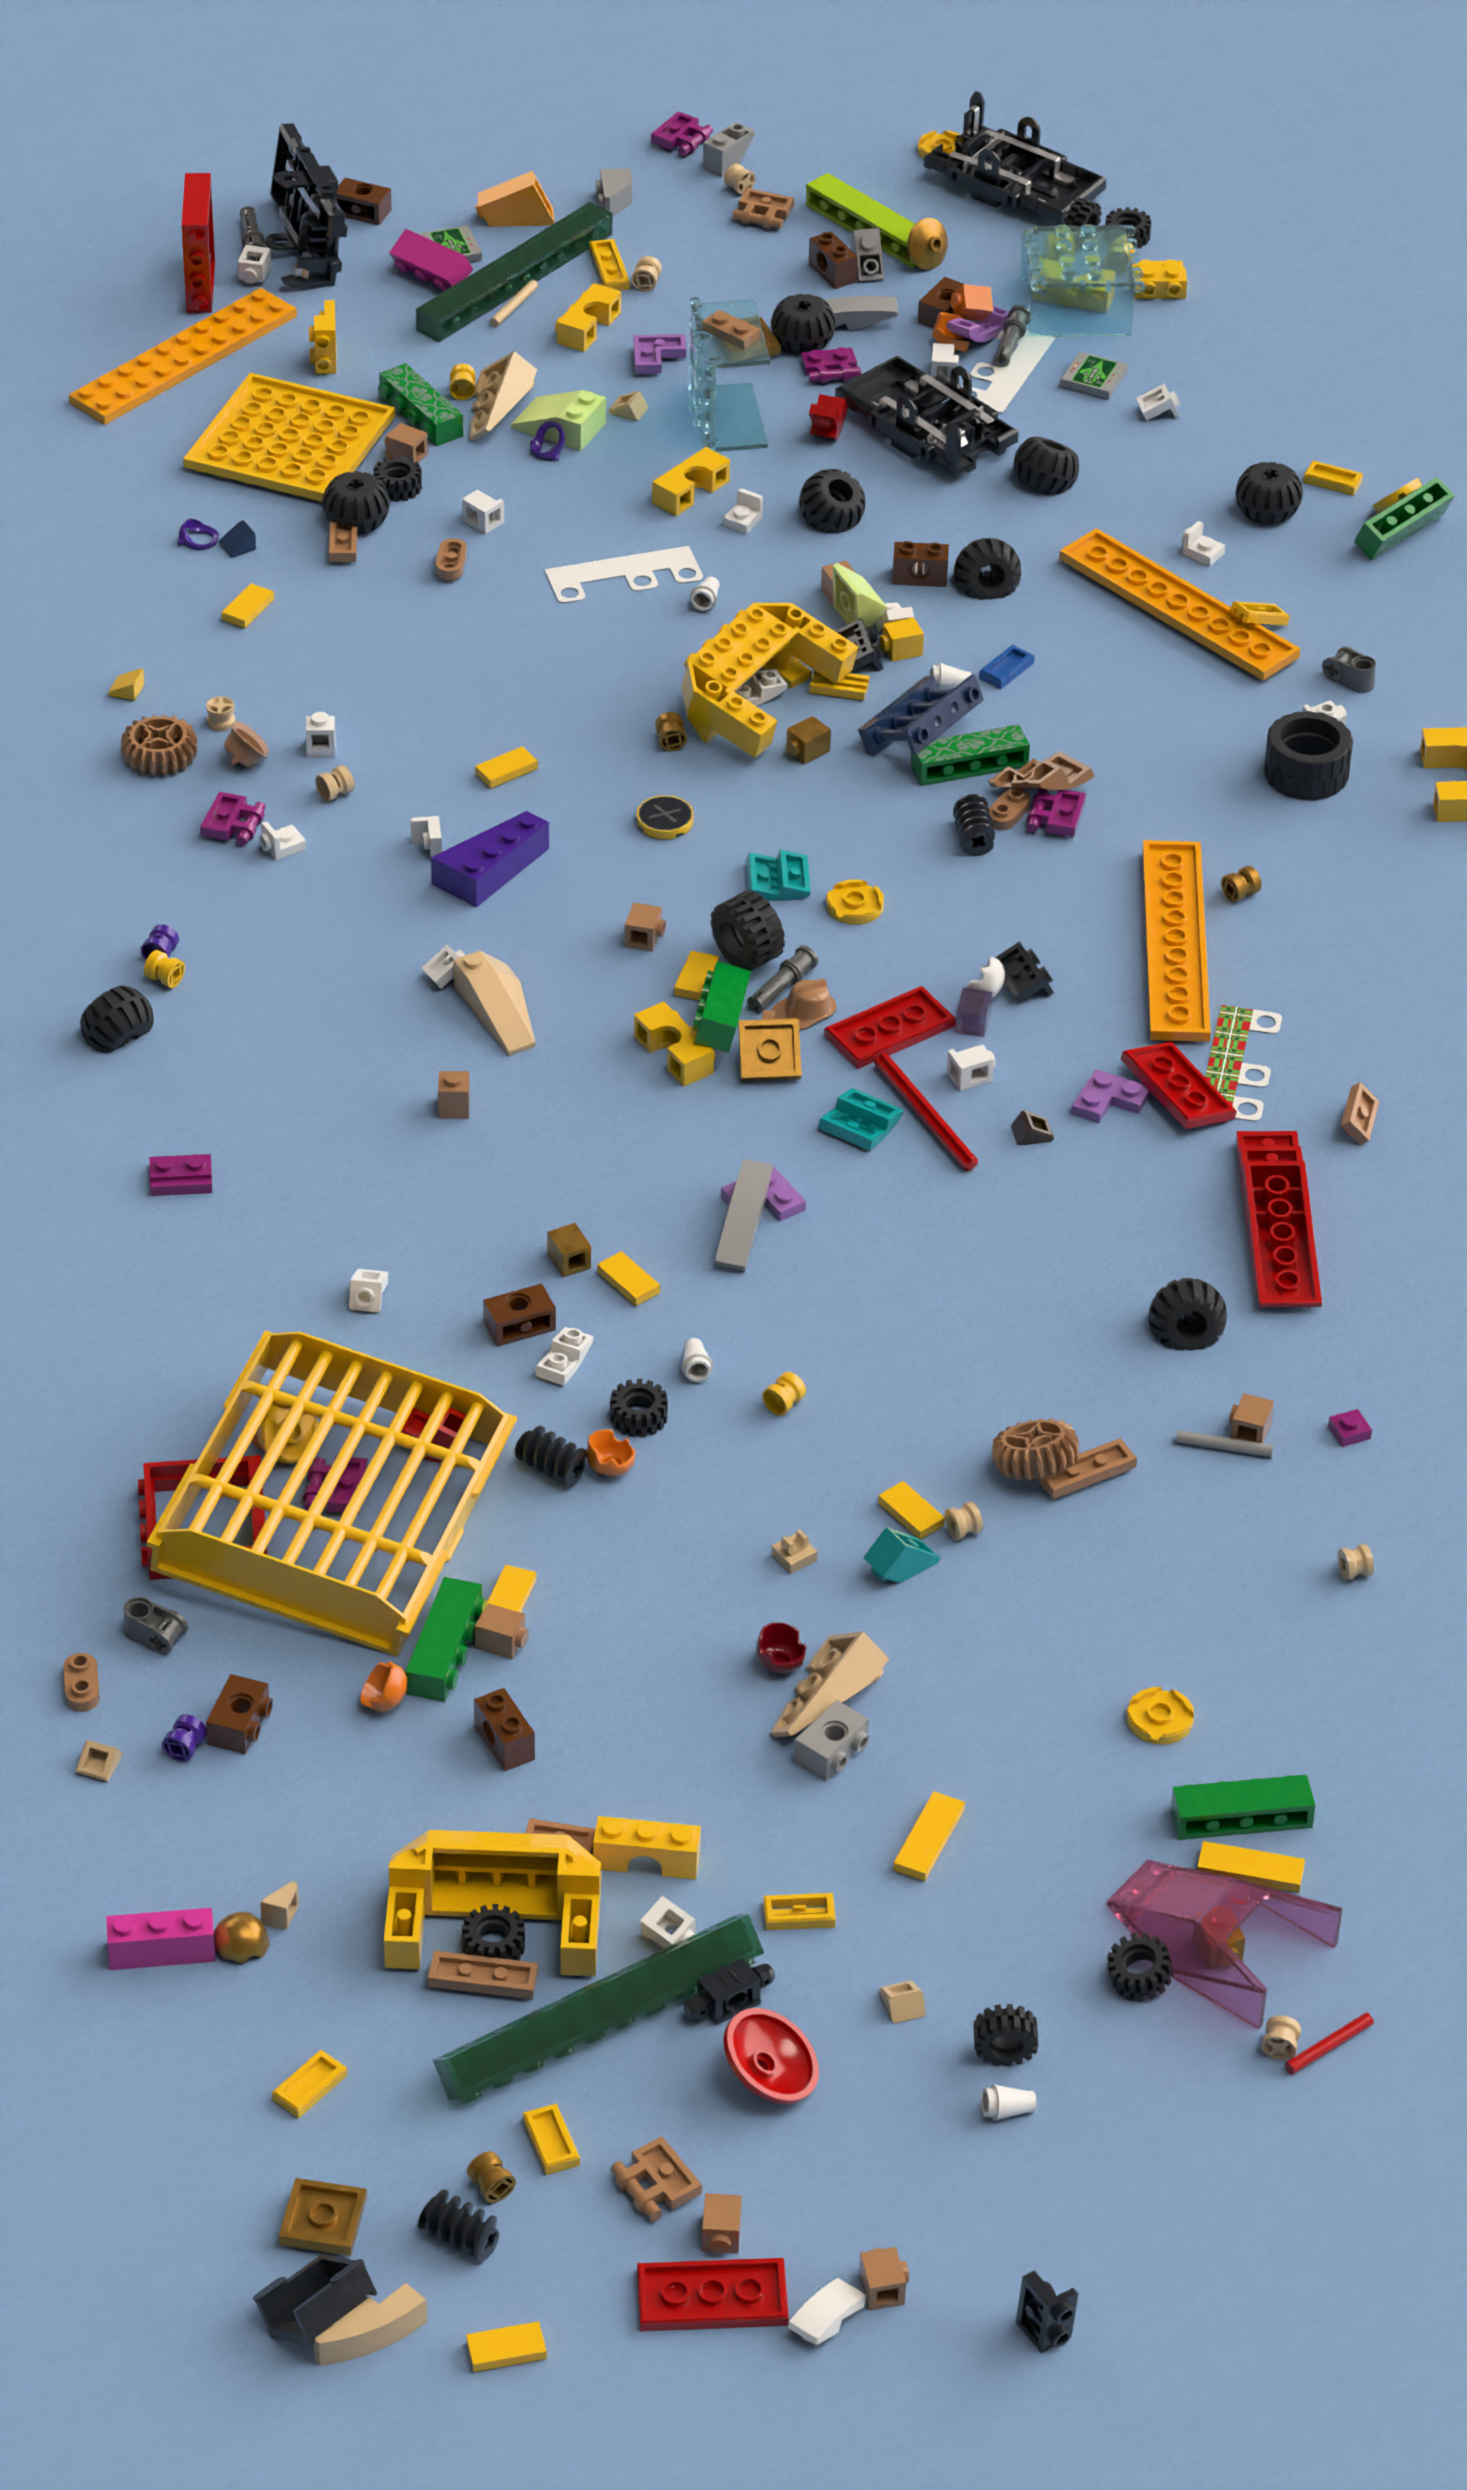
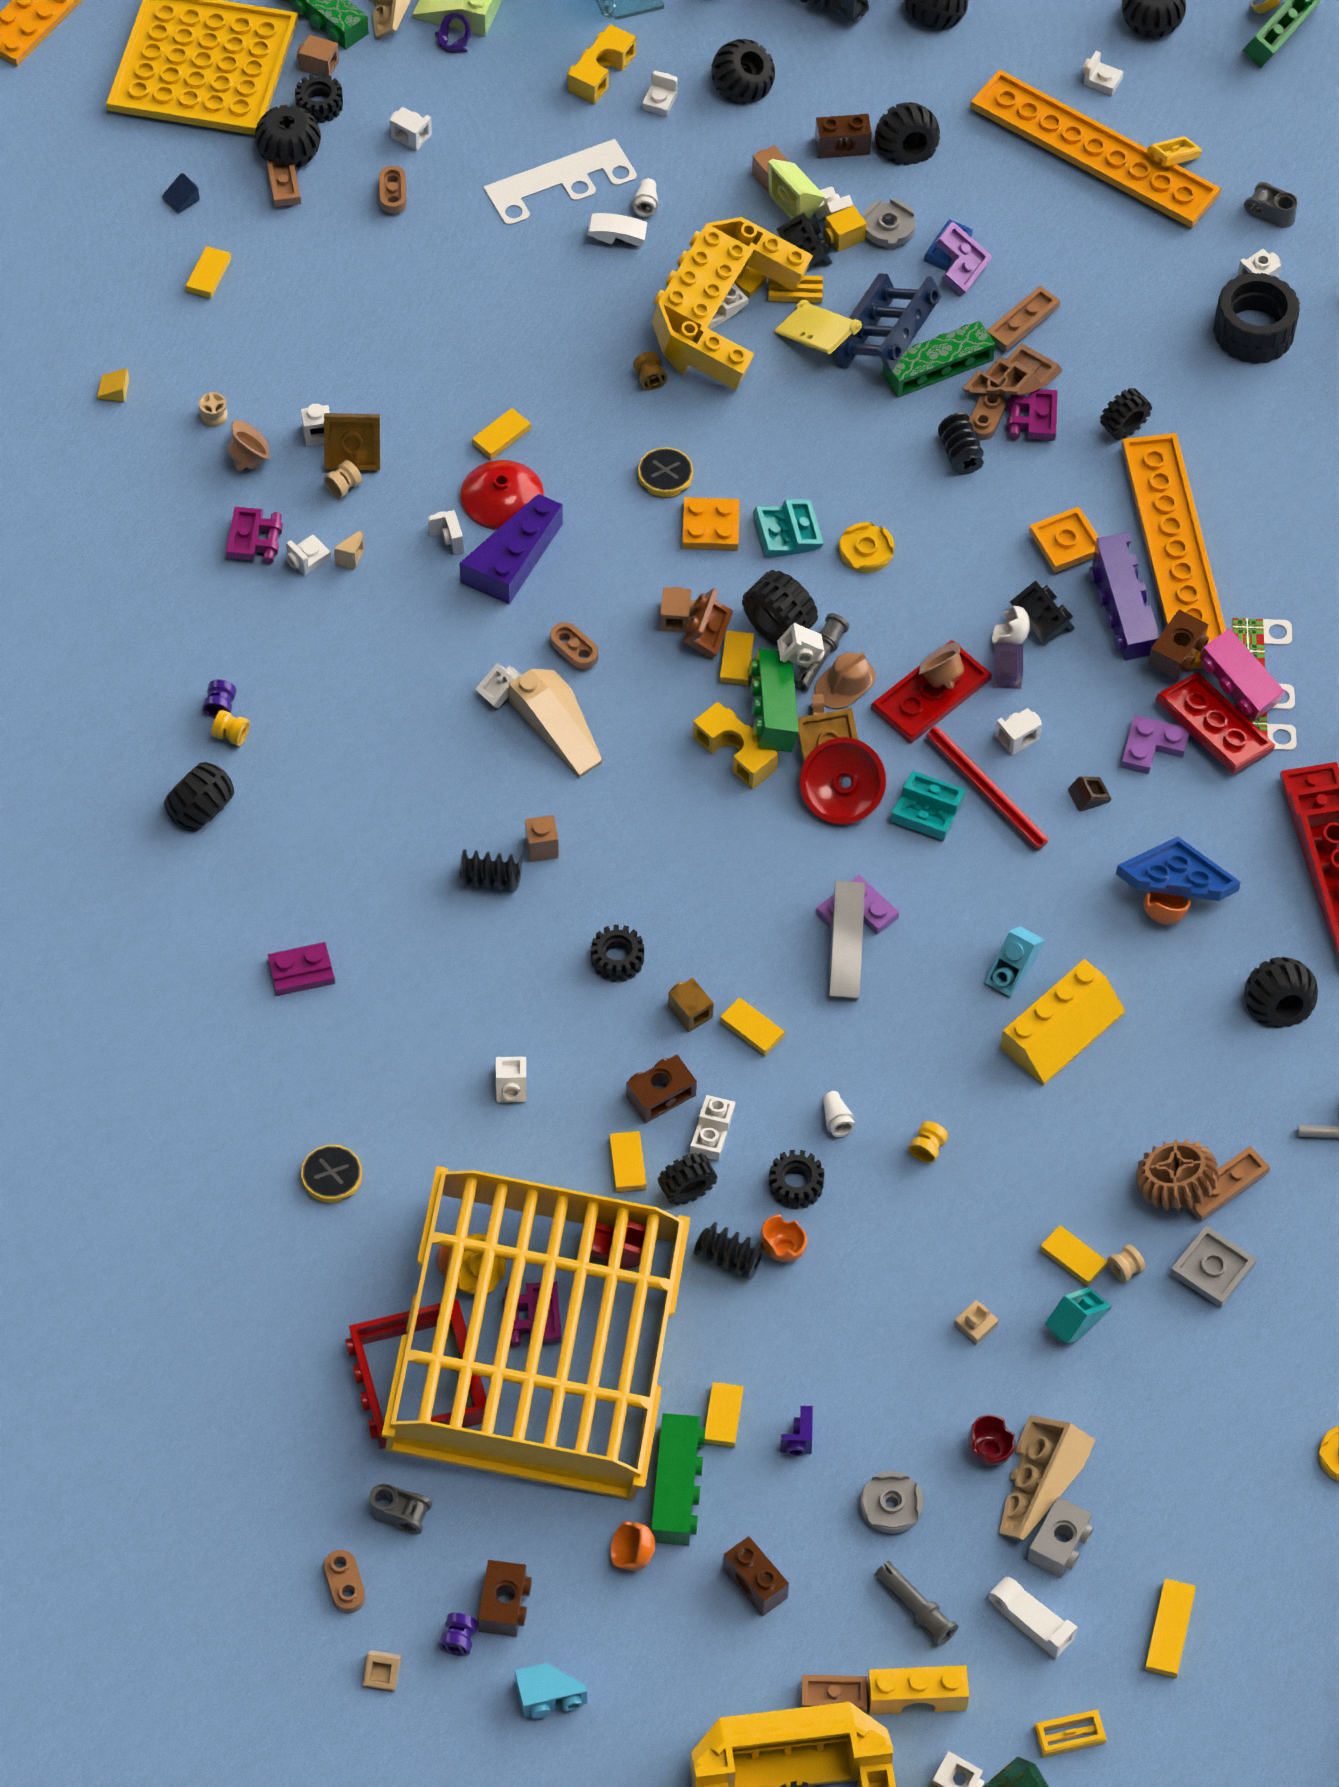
camera: 10 degrees left, 15 degrees up
(159, 745) = (161, 449): medium nougat gear -> none
(163, 1345) = (331, 1173): none -> black tile
(197, 526) = (137, 181): dark purple piece -> none
(263, 1796) = (547, 1689): none -> medium azure slope
(325, 841) = (350, 551): none -> tan slope
(352, 745) = (352, 439): none -> pearl gold plate
(394, 1116) = (490, 870): none -> black piece
(470, 1368) = (627, 1161): none -> yellow tile
(486, 809) = (495, 503): none -> red dish
(500, 1631) = (727, 1461): medium nougat brick -> none
(505, 1211) = (617, 938): none -> black tyre
(519, 1376) = (687, 1179): none -> black tyre
(532, 944) = (576, 647): none -> medium nougat plate
(583, 1623) = (801, 1440): none -> dark purple bracket
(659, 611) = (611, 226): none -> white slope
(664, 1689) = (896, 1488): none -> light grey plate
(673, 941) = (708, 624): none -> dark orange bracket
(673, 1786) = (925, 1612): none -> dark grey pin
(700, 864) = (710, 523): none -> light orange plate
(760, 963) = (800, 646): none -> white brick
(765, 1070) = (827, 768): none -> red dish
(786, 1805) = (1032, 1617): none -> white leg
(808, 740) = (782, 362): pearl gold brick -> none
(852, 713) = (817, 327): none -> light yellow door
(903, 1001) = (943, 666): none -> medium nougat piece
(914, 1254) = (1014, 960): none -> medium azure slope
(947, 676) = (898, 267): white cone -> none
(949, 641) = (892, 235): none -> light grey plate
(950, 1311) = (1062, 1022): none -> yellow slope
(1022, 675) = (967, 256): none -> medium lavender plate
(1055, 1536) = (1213, 1266): none -> light grey plate
(1063, 917) = (1065, 539): none -> light orange plate
(1067, 732) = (1023, 318): none -> medium nougat plate
(1084, 1228) = (1165, 908): none -> orange hair
(1105, 1198) = (1178, 870): none -> blue plate
(1108, 966) = (1123, 596): none -> wedge
(1147, 806) = (1126, 413): none -> black tyre
(1153, 1009) = (1182, 630): none -> reddish brown brick
(1214, 1044) = (1241, 675): none -> dark pink brick
(1239, 884) = (1221, 478): pearl gold wheel -> none

